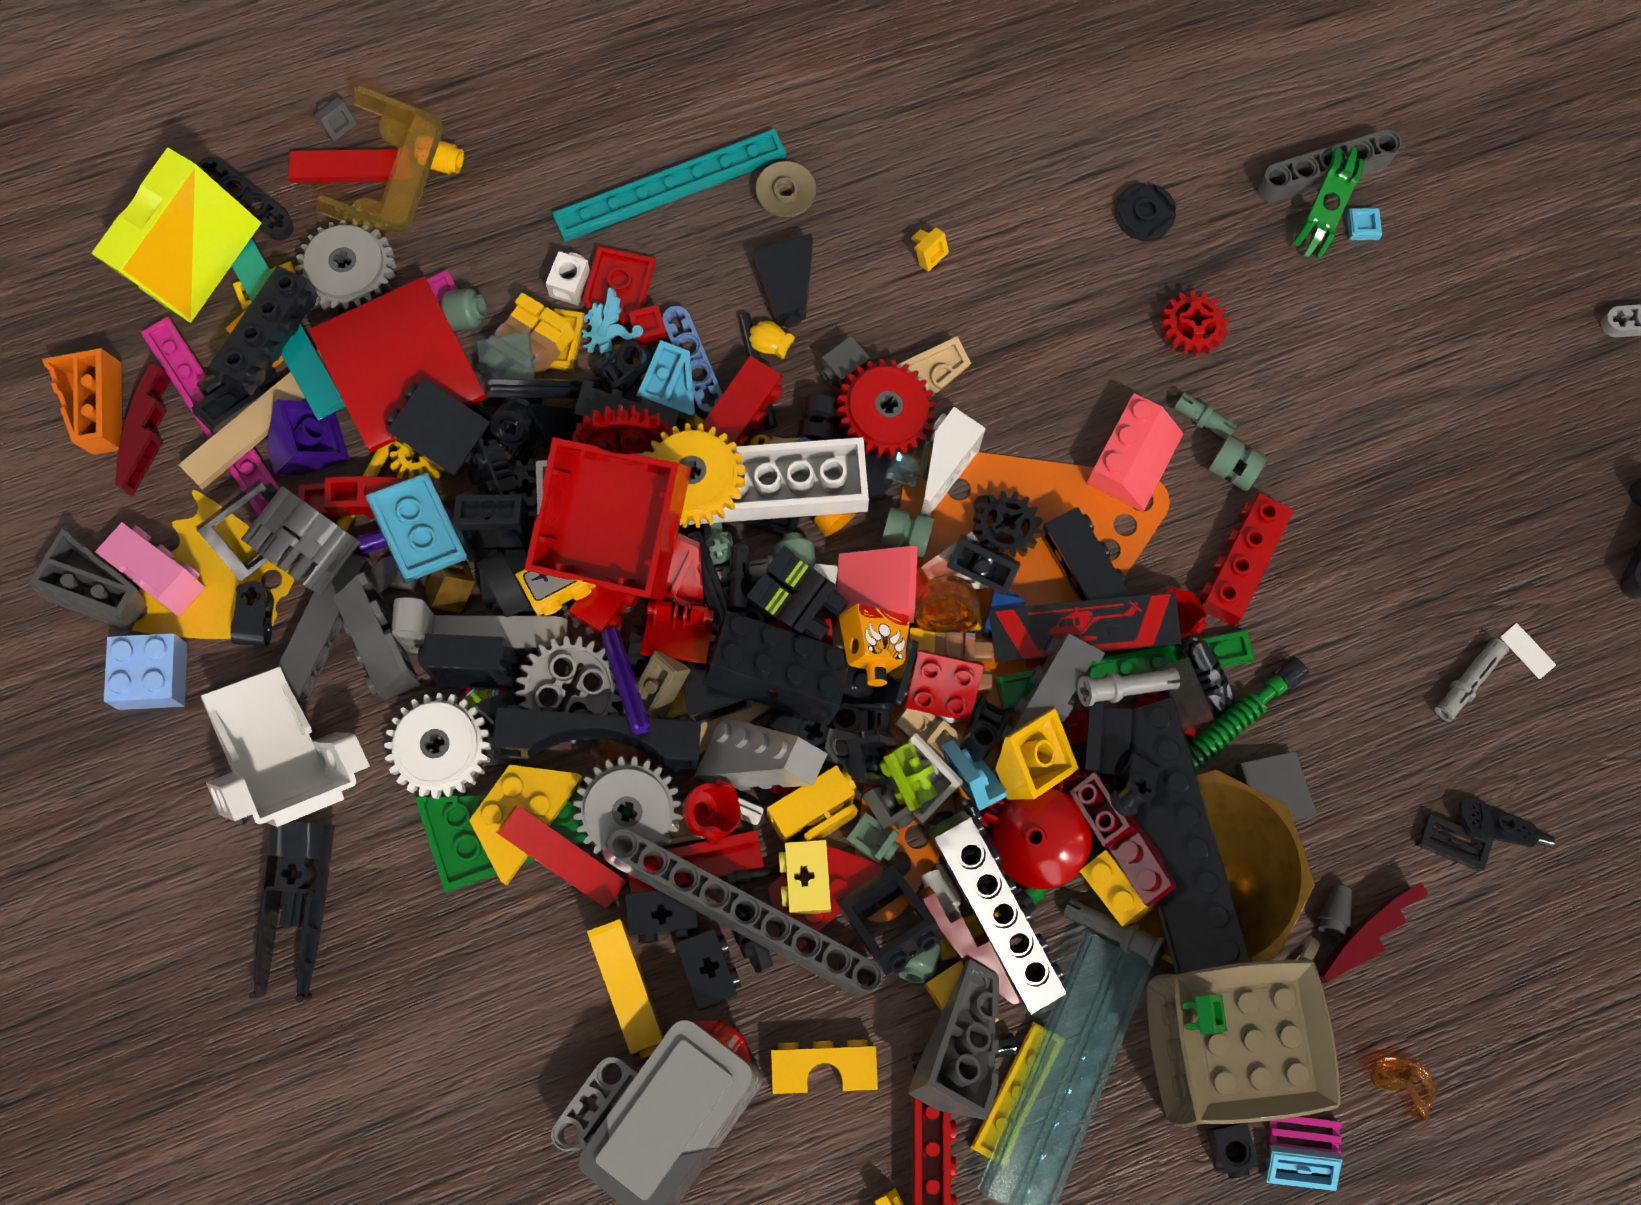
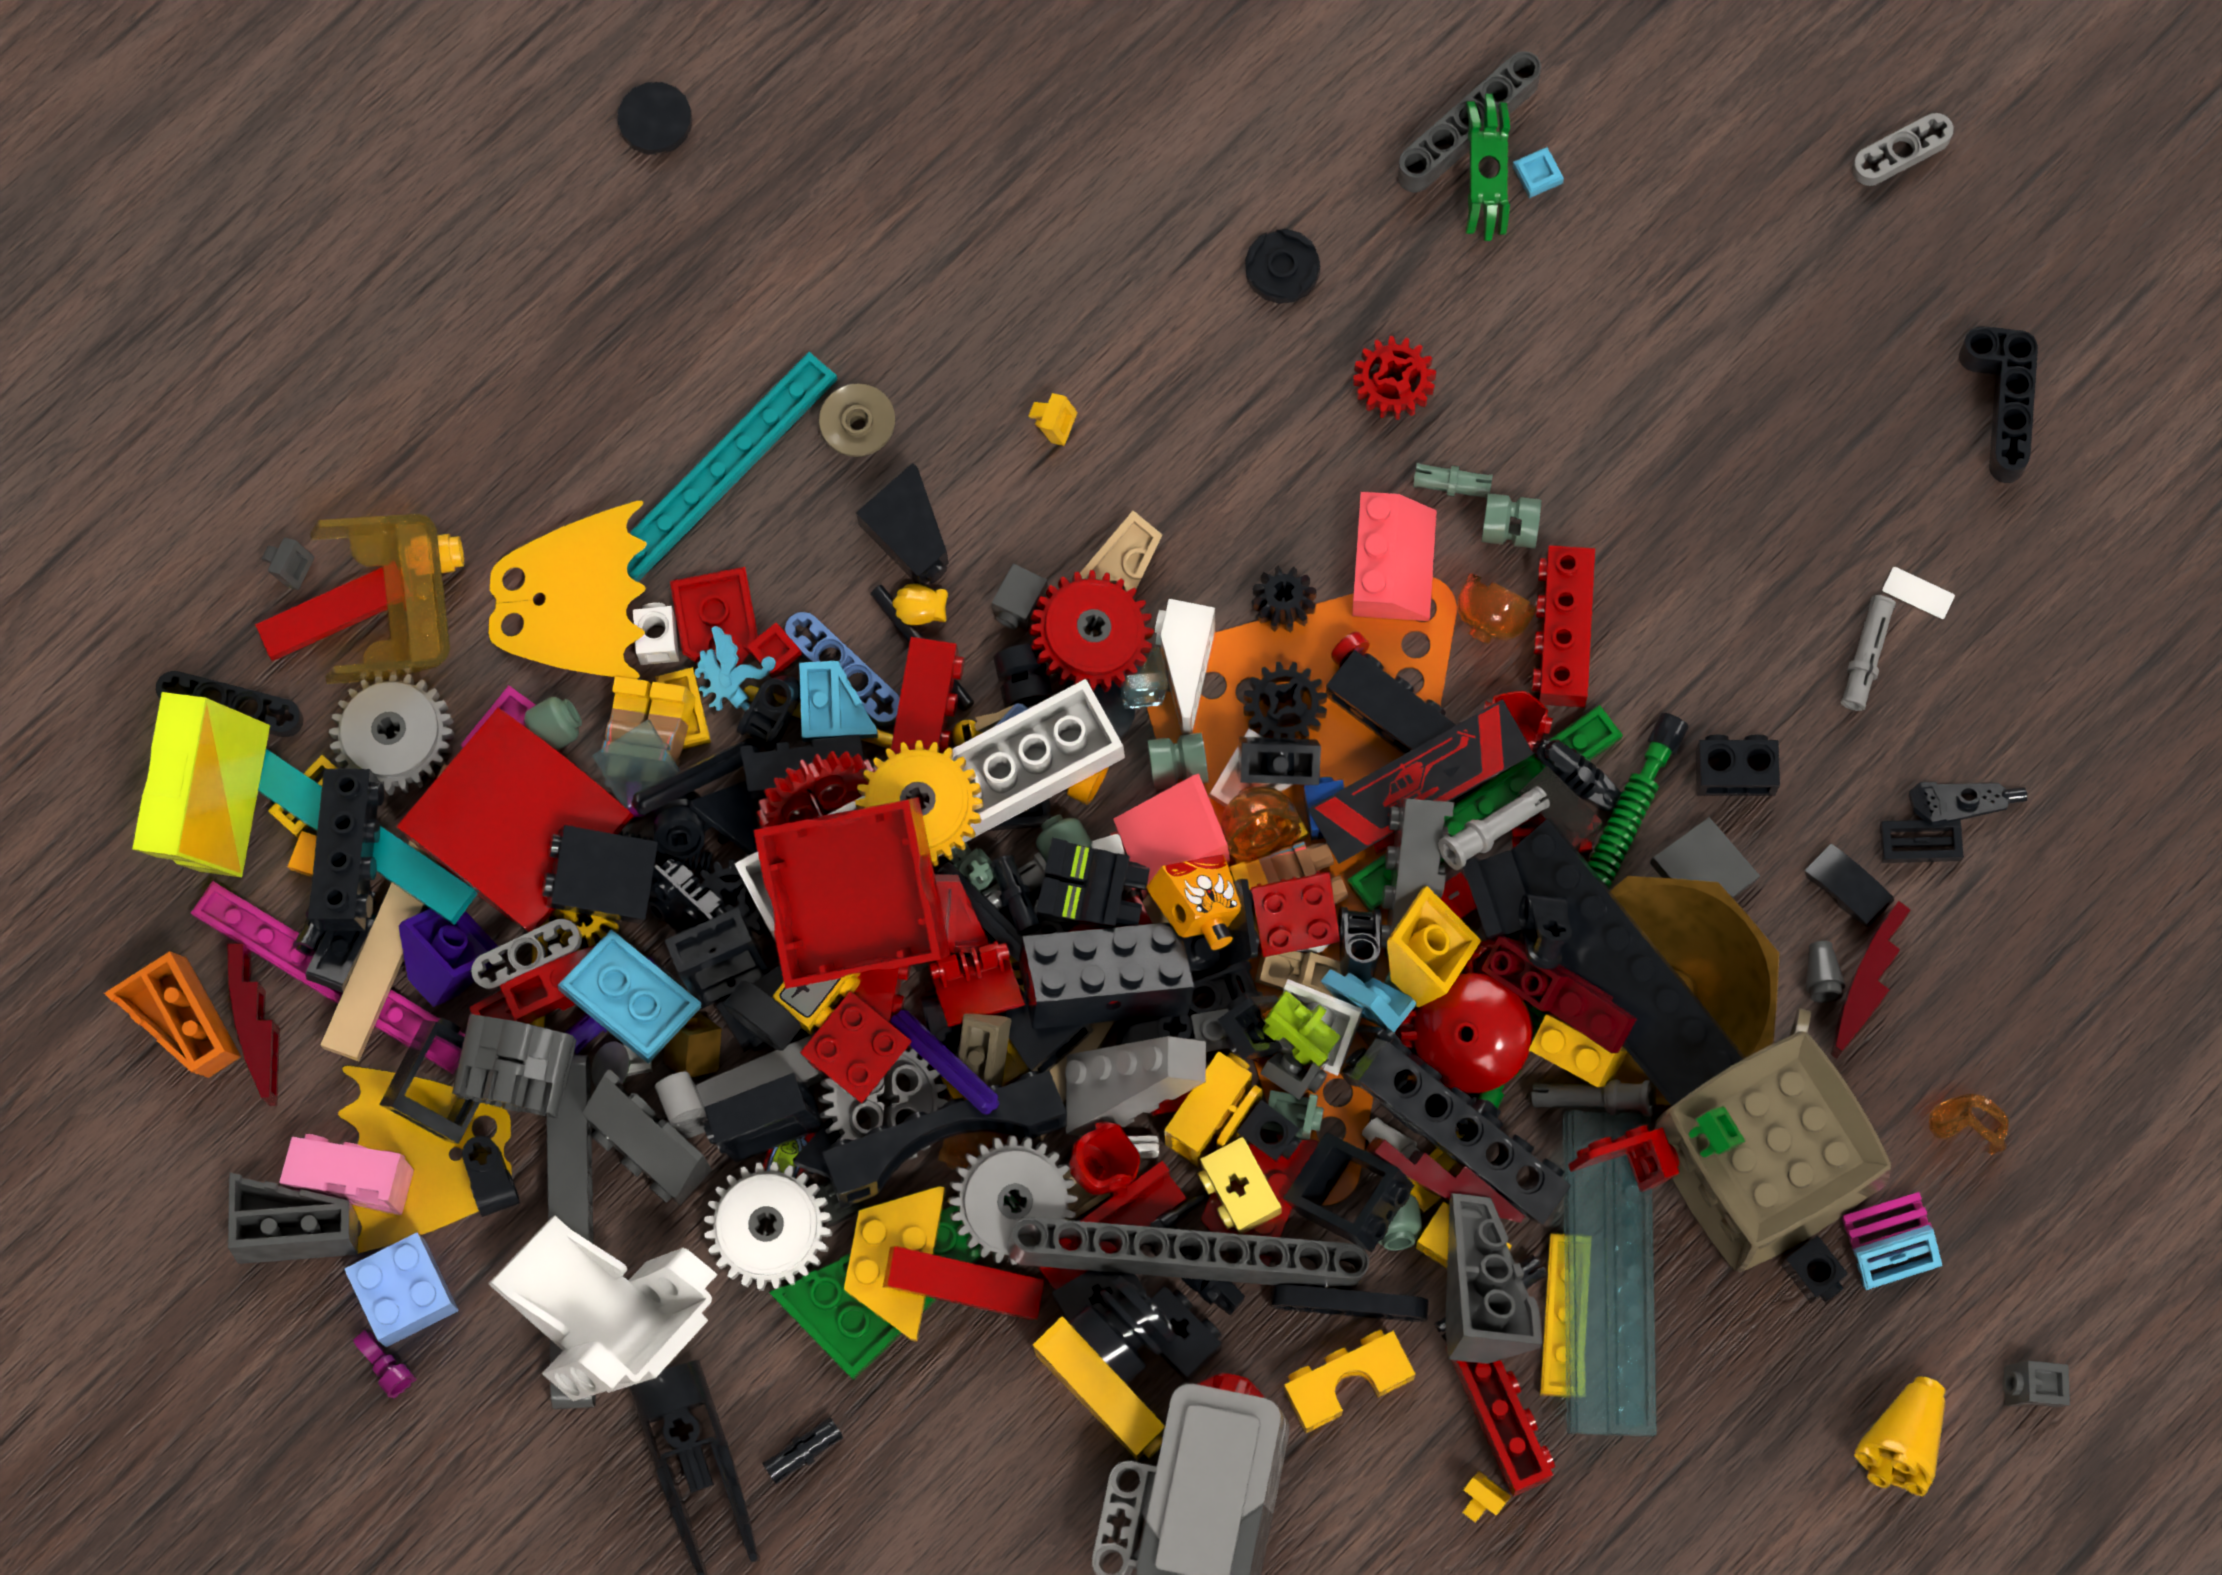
camera: 15 degrees left, 0 degrees up
(108, 734) = (394, 1378): none -> magenta piece
(380, 454) = (549, 933): none -> light grey beam
(381, 930) = (802, 1450): none -> black pin
(532, 225) = (585, 593): none -> yellow piece
(563, 639) = (855, 1047): none -> red hinge
(662, 951) = (1123, 1328): none -> black wheel
(835, 839) = (1257, 1119): none -> black brick
(852, 1006) = (1349, 1303): none -> black beam
(1044, 439) = (1284, 612): none -> black gear
(1074, 501) = (1347, 645): none -> red tile
(1139, 999) = (1648, 1153): none -> red bracket
(1196, 523) = (1493, 610): none -> clear orange cylinder
(1333, 730) = (1738, 777): none -> black brick
(1385, 852) = (1849, 884): none -> black slope

